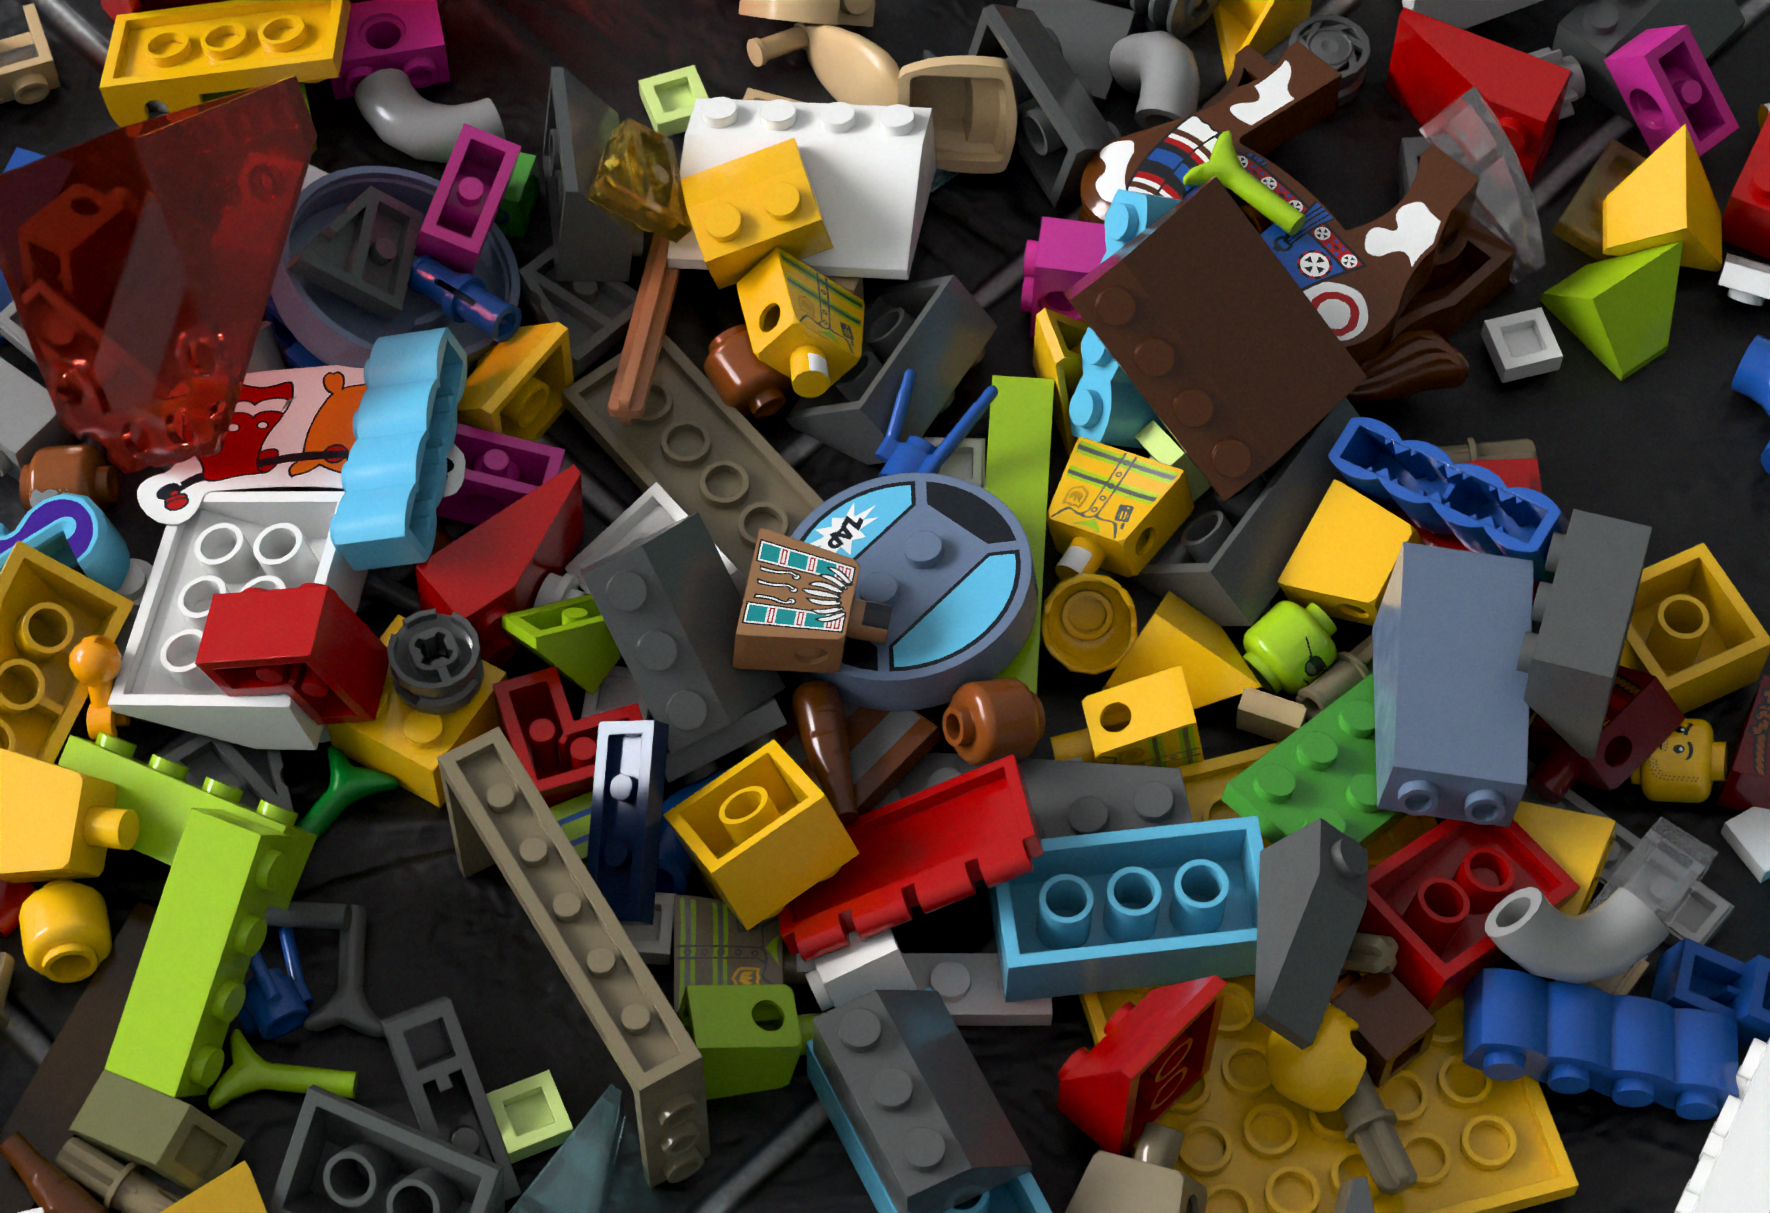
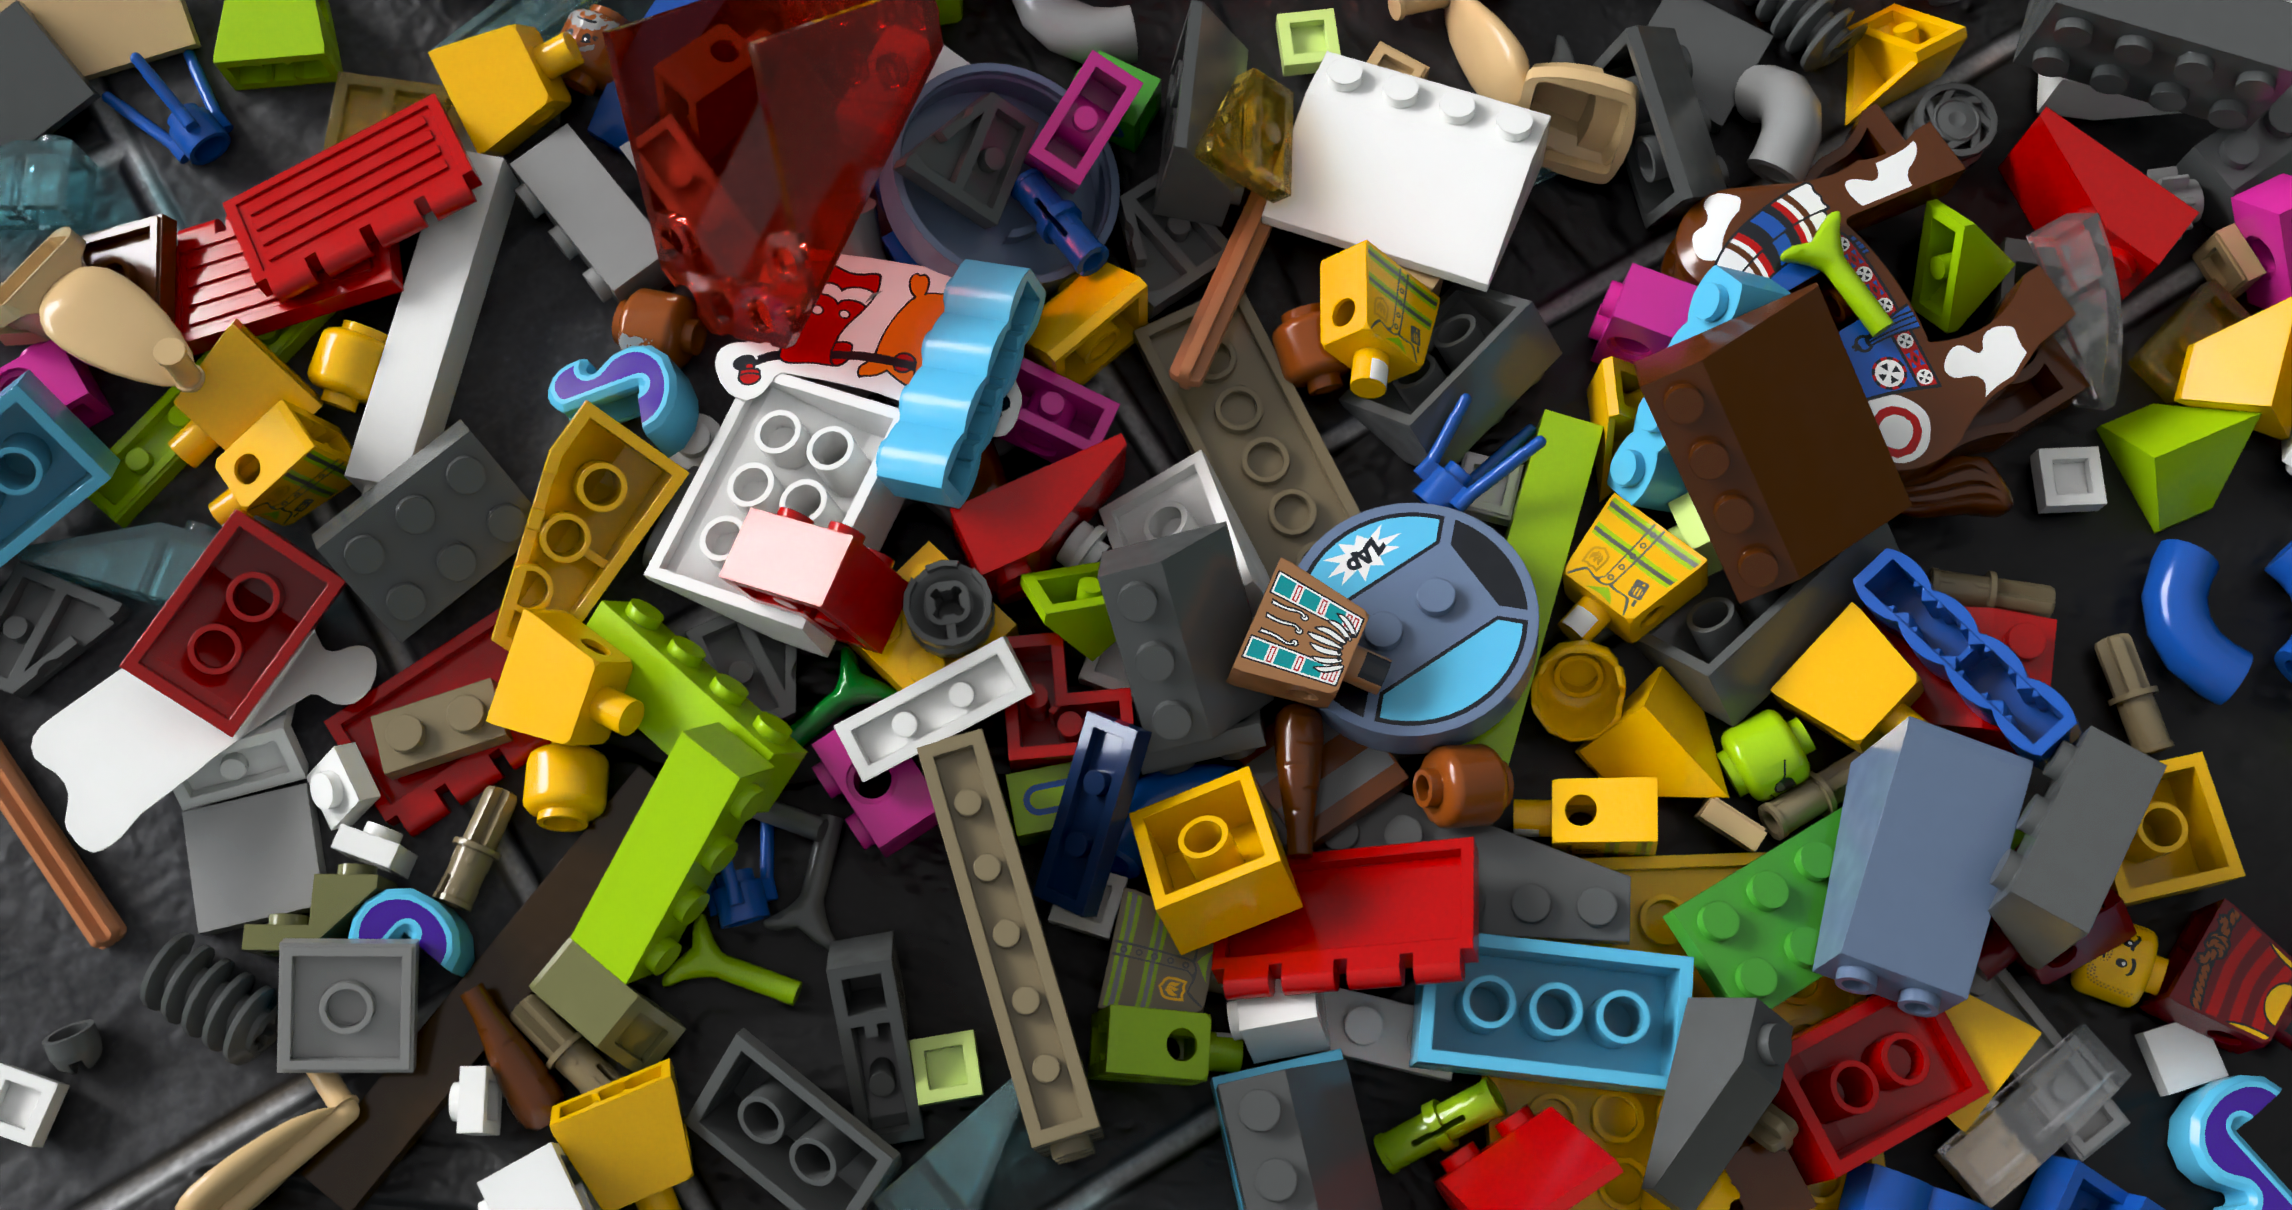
camera: 15 degrees right, 15 degrees up
(96, 665) = (640, 534): light orange arm -> none
(383, 828) = (887, 820): none -> dark pink brick
(409, 780) = (934, 708): none -> white plate
(752, 208) = (1354, 191): yellow slope -> none
(1014, 1084) = (1440, 1125): none -> lime pin
(1359, 168) = (1954, 267): none -> lime slope
(1574, 946) = (1969, 1165): light grey cylinder -> none
(1621, 502) = (2133, 694): none -> dark tan axle
(1623, 120) = (2229, 260): none -> tan tile
(1664, 449) = (2182, 625): none -> blue cylinder

